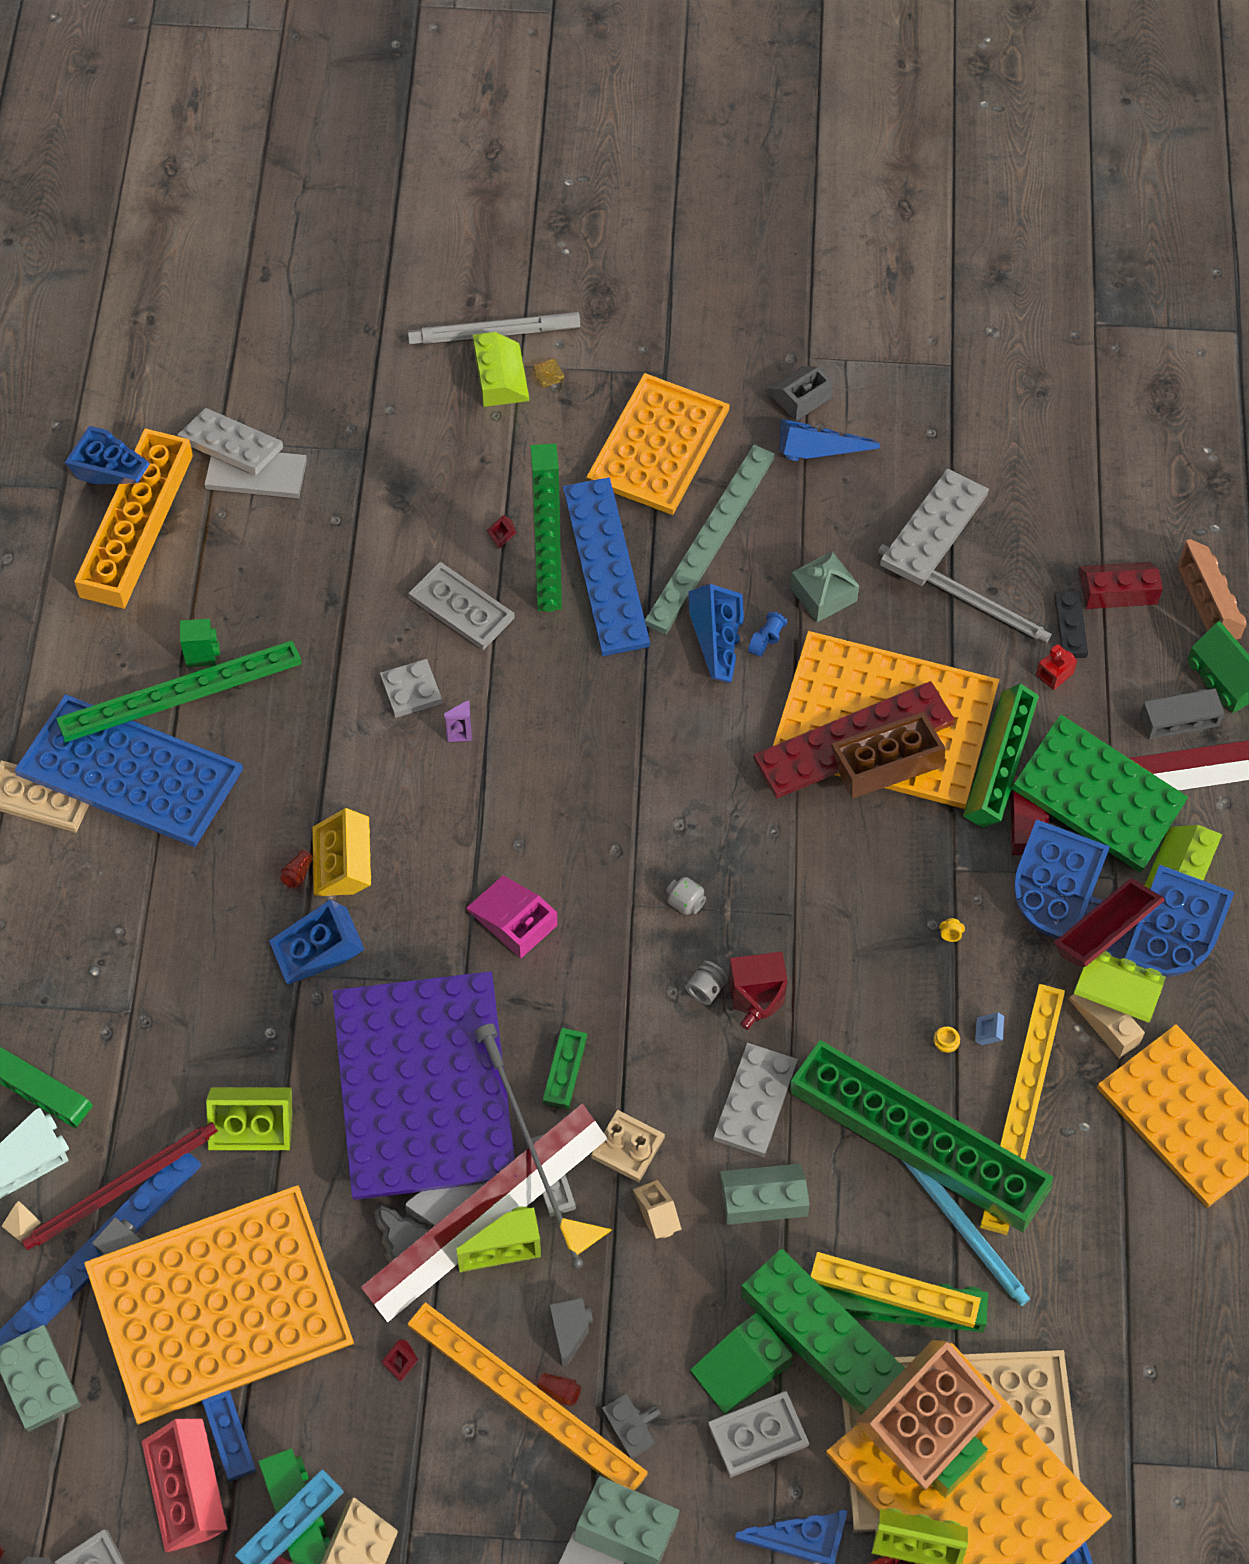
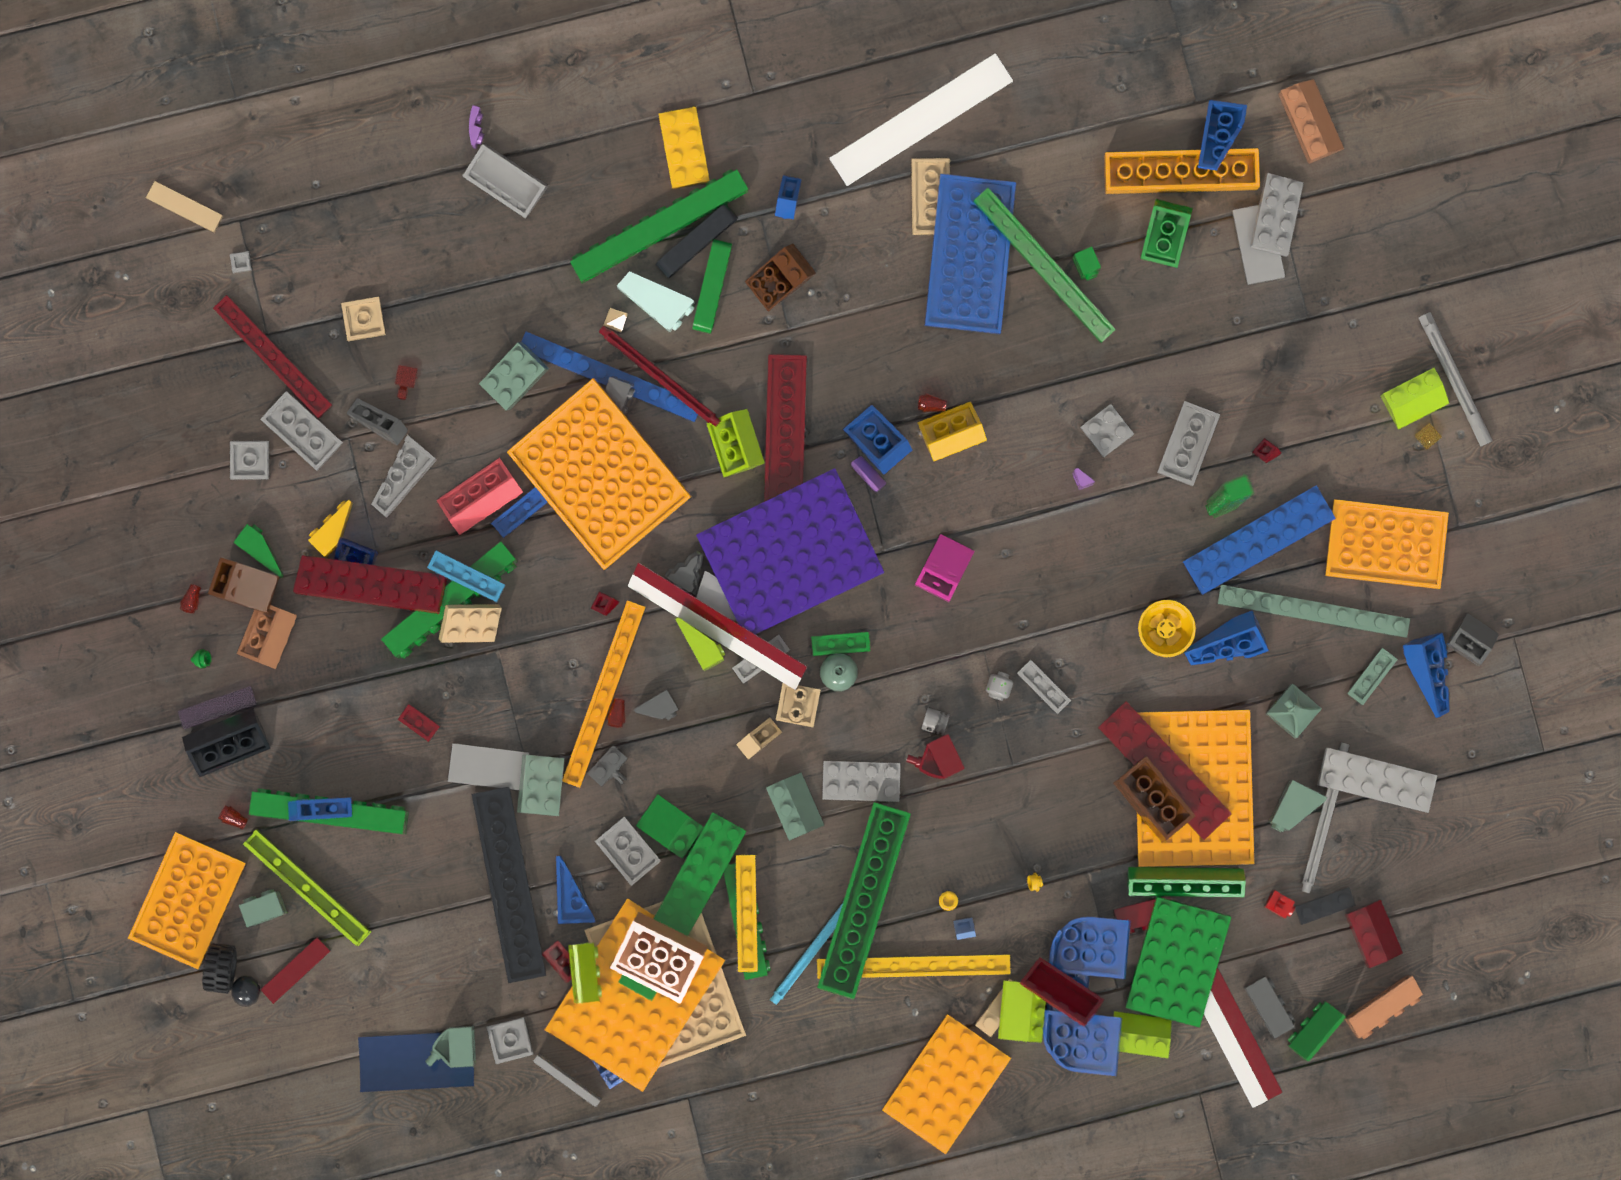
camera: 75 degrees right, 25 degrees up
(58, 999) = (780, 276): none -> reddish brown slope
(138, 384) = (1310, 120): none -> nougat slope
(201, 556) = (1166, 233): none -> green slope
(250, 1050) = (785, 423): none -> dark red plate
(357, 972) = (868, 474): none -> medium lavender slope
(576, 1234) = (719, 692): dark grey piece -> none
(601, 1083) = (845, 678): none -> sand green cylinder
(676, 673) = (1175, 619): none -> yellow piece
(703, 846) = (1044, 687): none -> light grey plate
(767, 634) = (1241, 682): blue connector -> none
(809, 499) = (1372, 676): none -> sand green plate
(940, 613) = (1294, 806): none -> sand green slope

